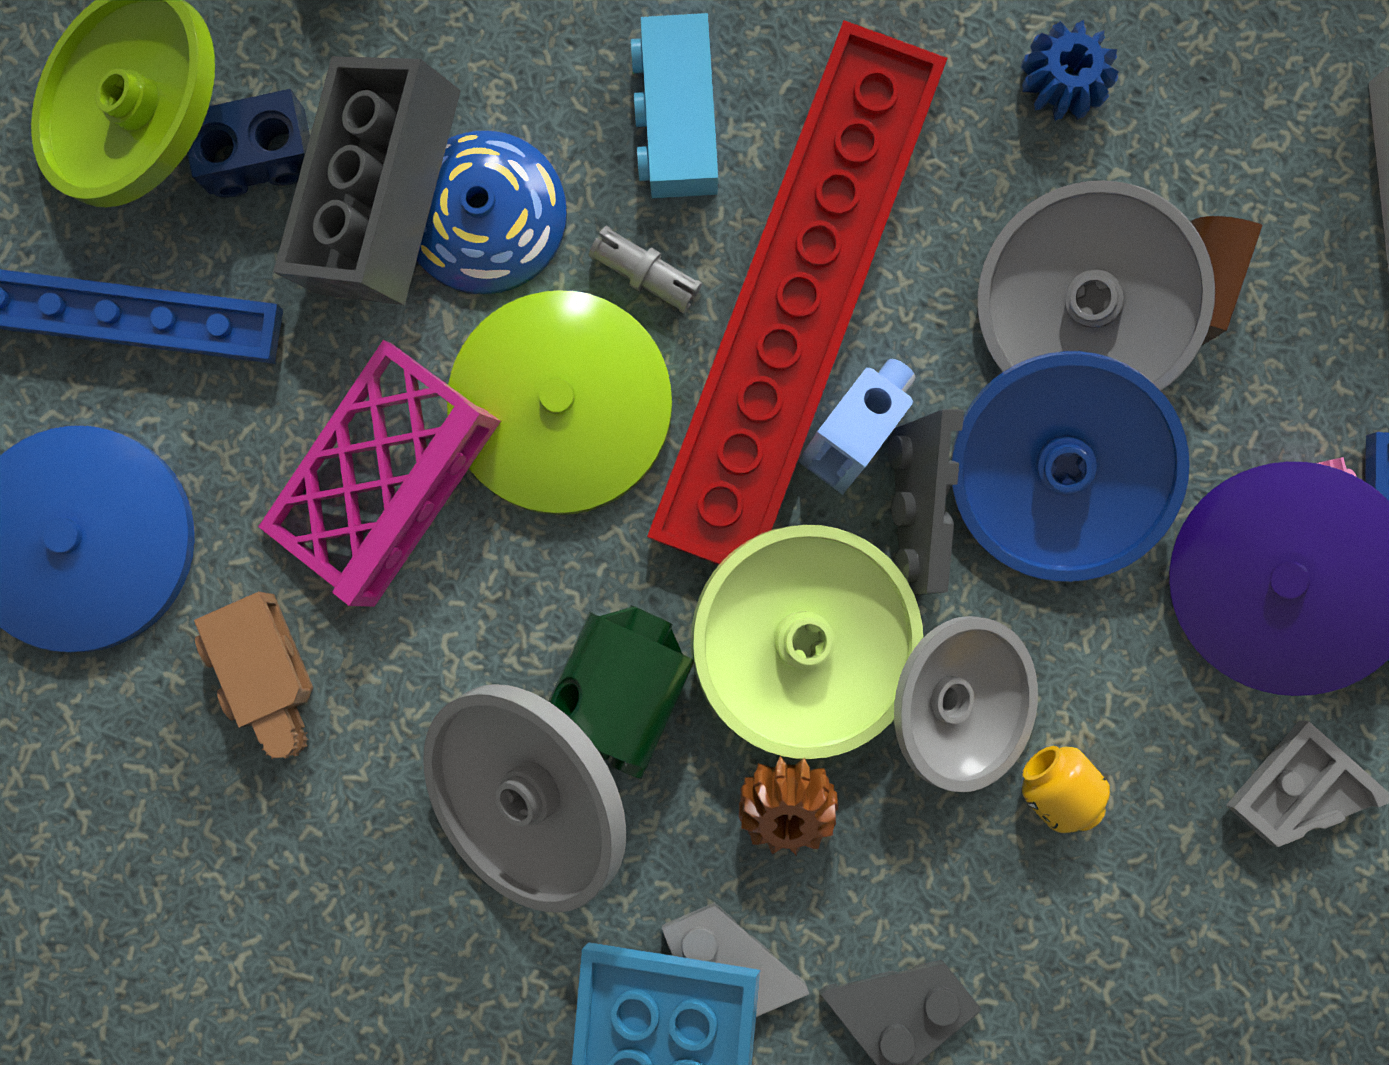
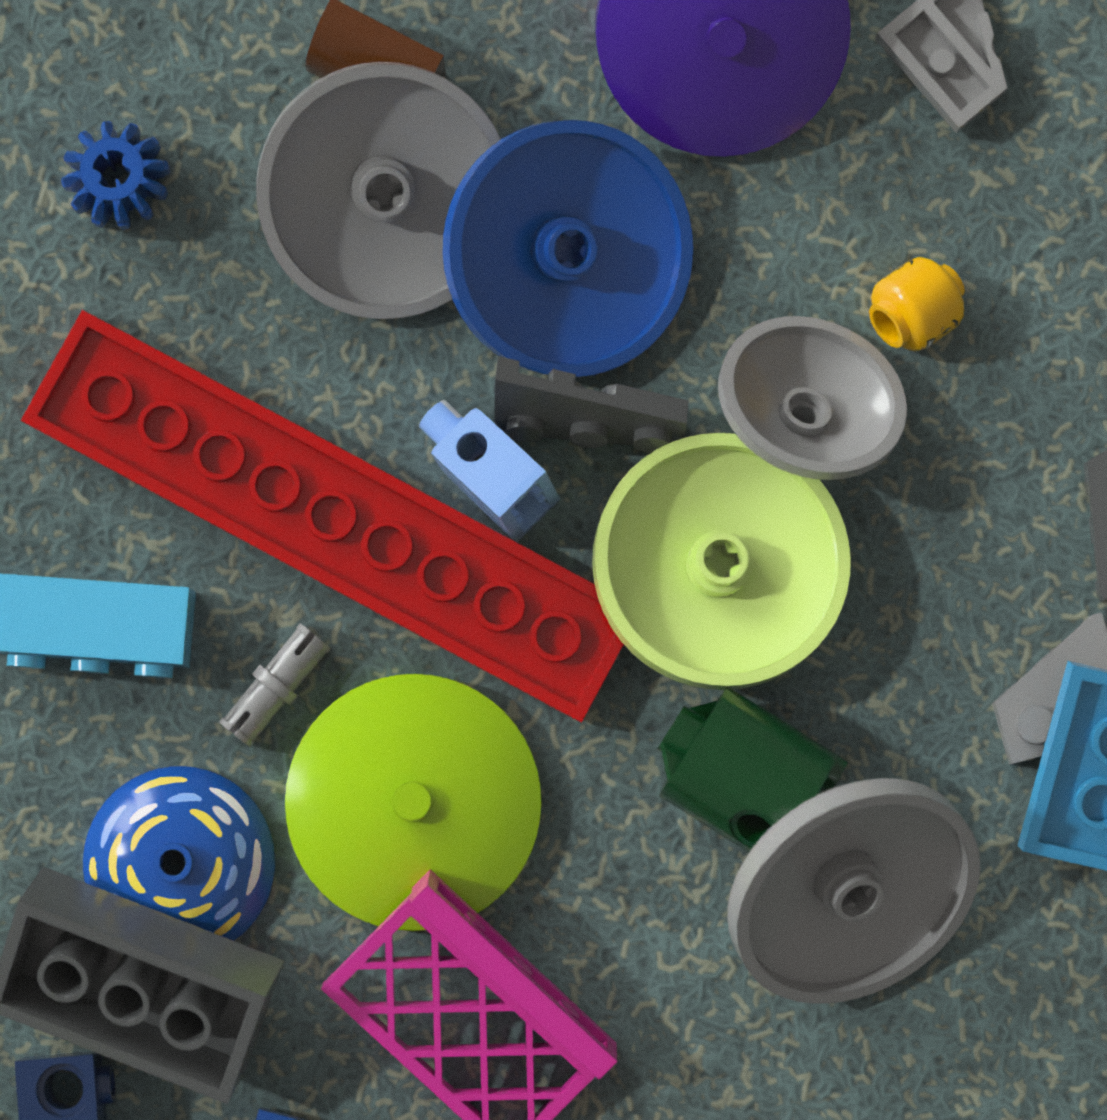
camera: 80 degrees left, 0 degrees up
(788, 806) = (897, 606): dark orange gear -> none

